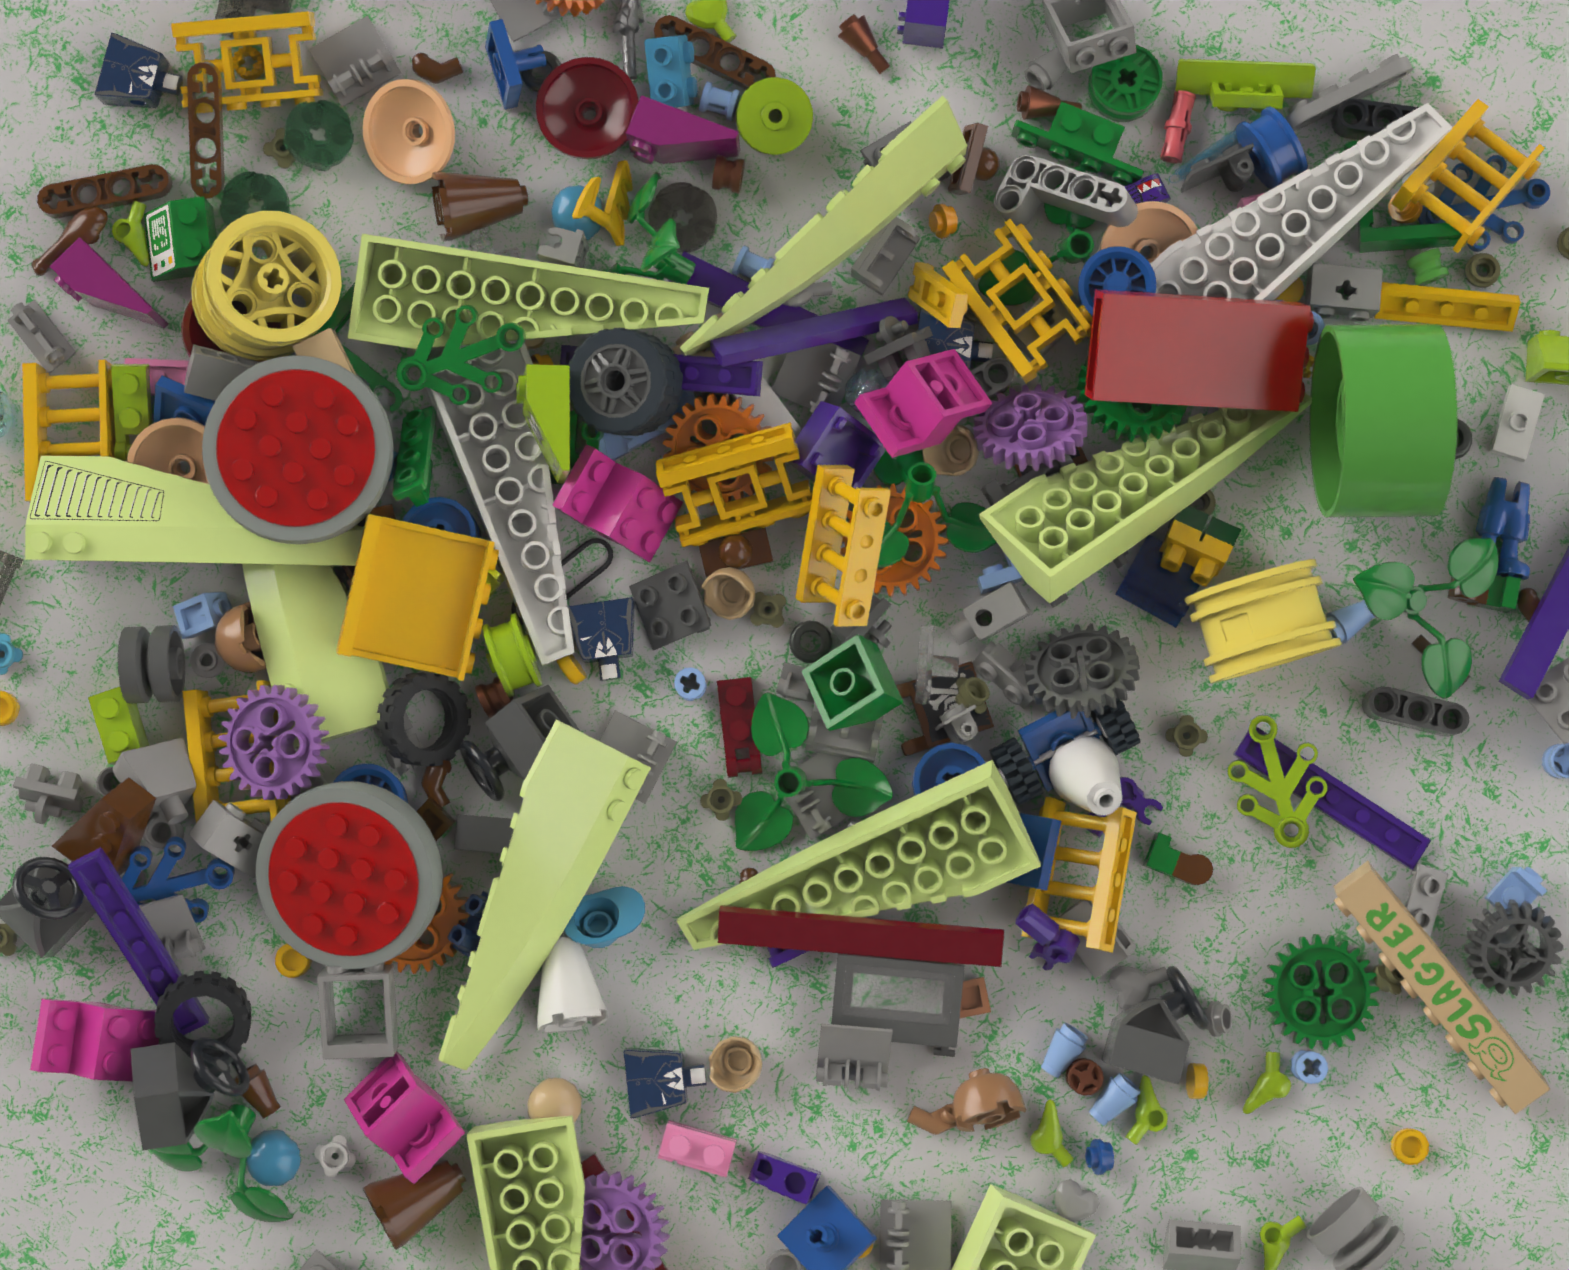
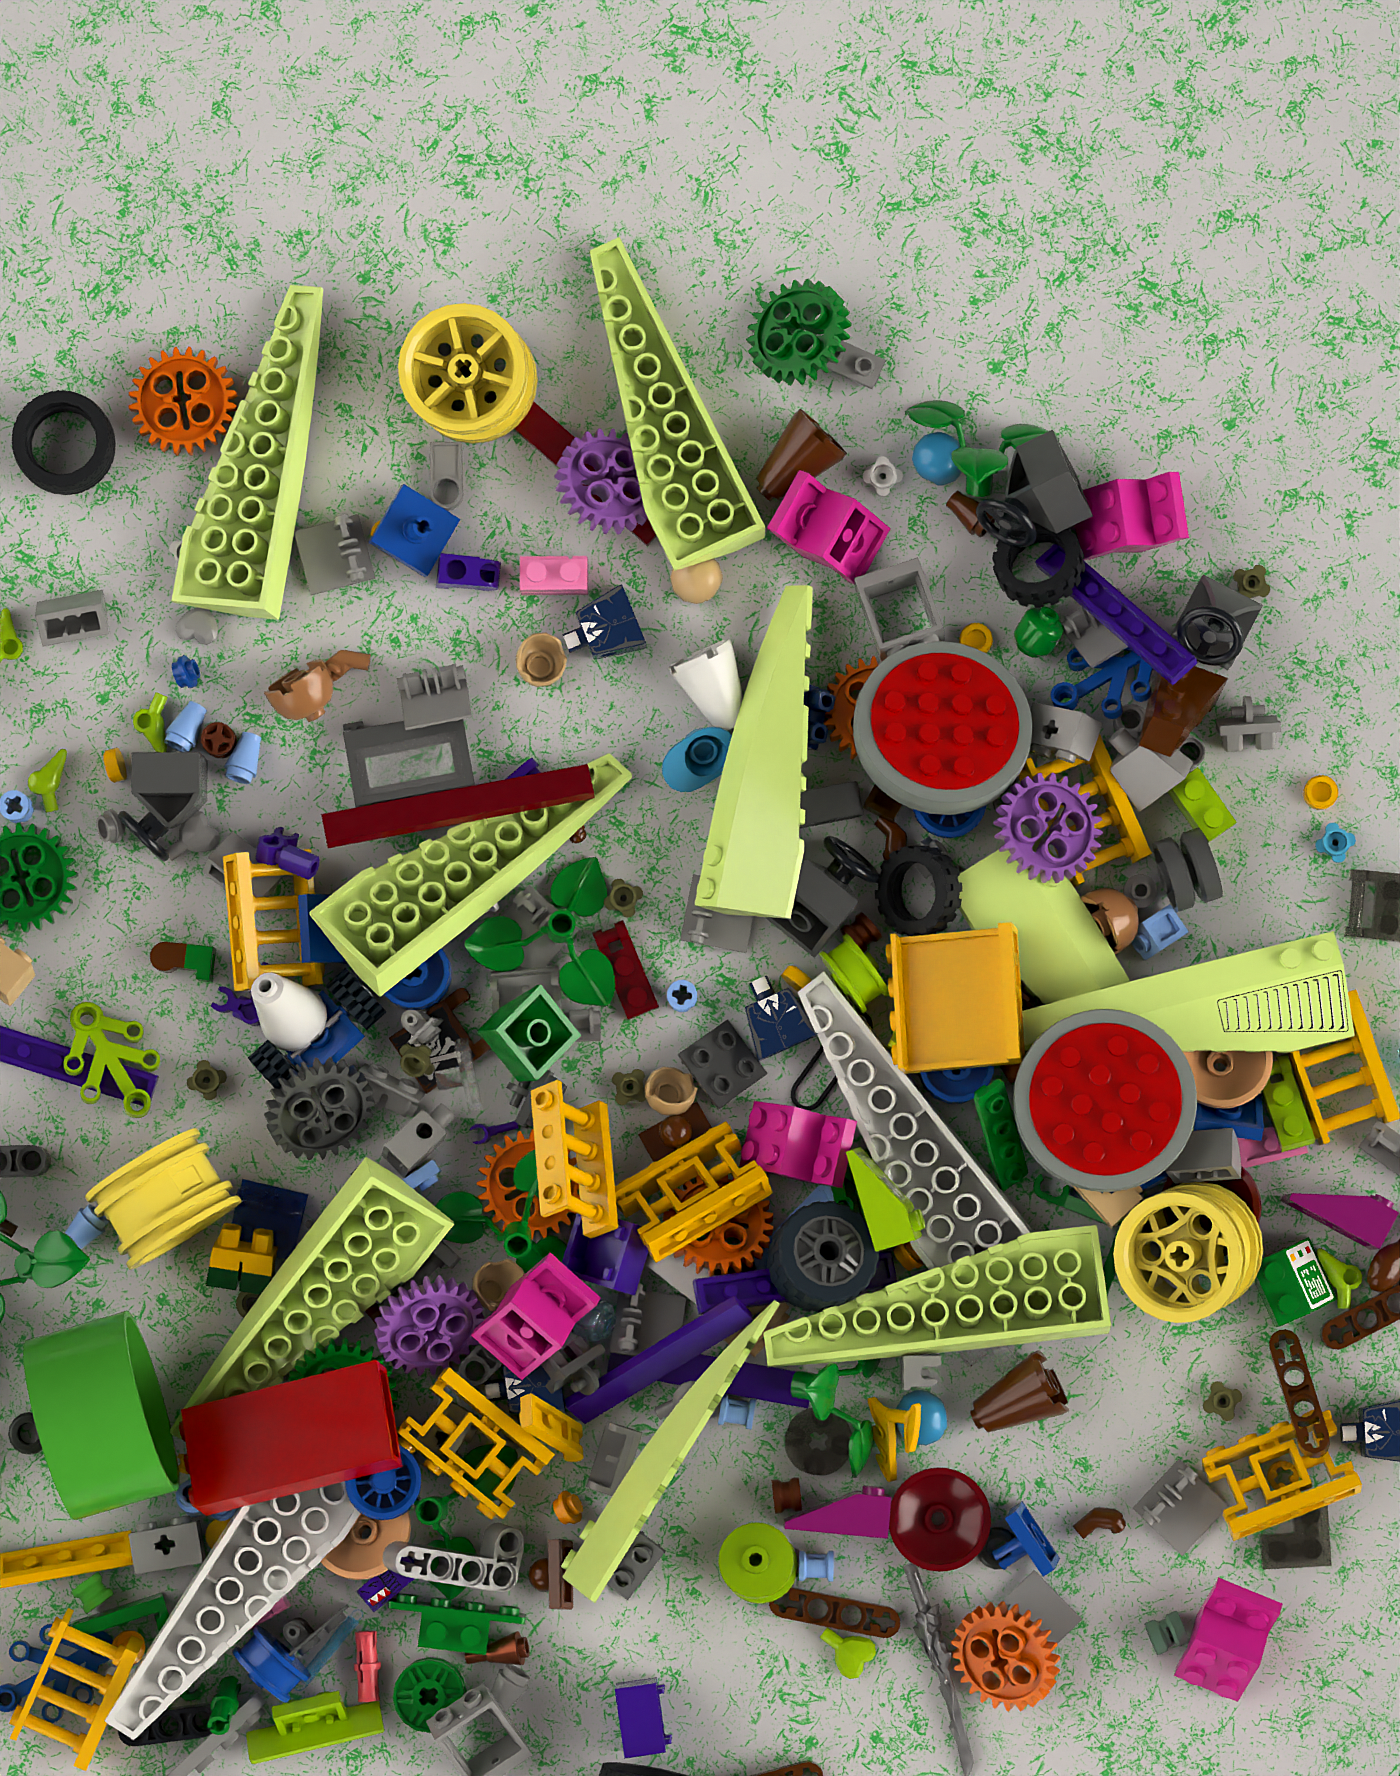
camera: 160 degrees right, 0 degrees up
(225, 948) = (1038, 632): none -> green head
(249, 186) = (1232, 1356): clear green plate -> none
(320, 153) = (1174, 1431): clear green plate -> none
(394, 136) = (1112, 1434): light nougat dish -> none
(454, 358) = (988, 1233): green plant -> none
(670, 70) = (869, 1576): dark azure bracket -> none
(810, 626) = (574, 1055): pearl dark grey piece -> none
(860, 38) = (699, 1668): copper cone -> none
(915, 605) = (493, 1130): none -> dark purple hand
(974, 998) = (338, 782): nougat plate -> none
(1049, 1137) = (236, 676): lime animal -> none
(1327, 122) = (224, 1705): none -> green pin
(1491, 265) = (28, 1606): olive plate -> none

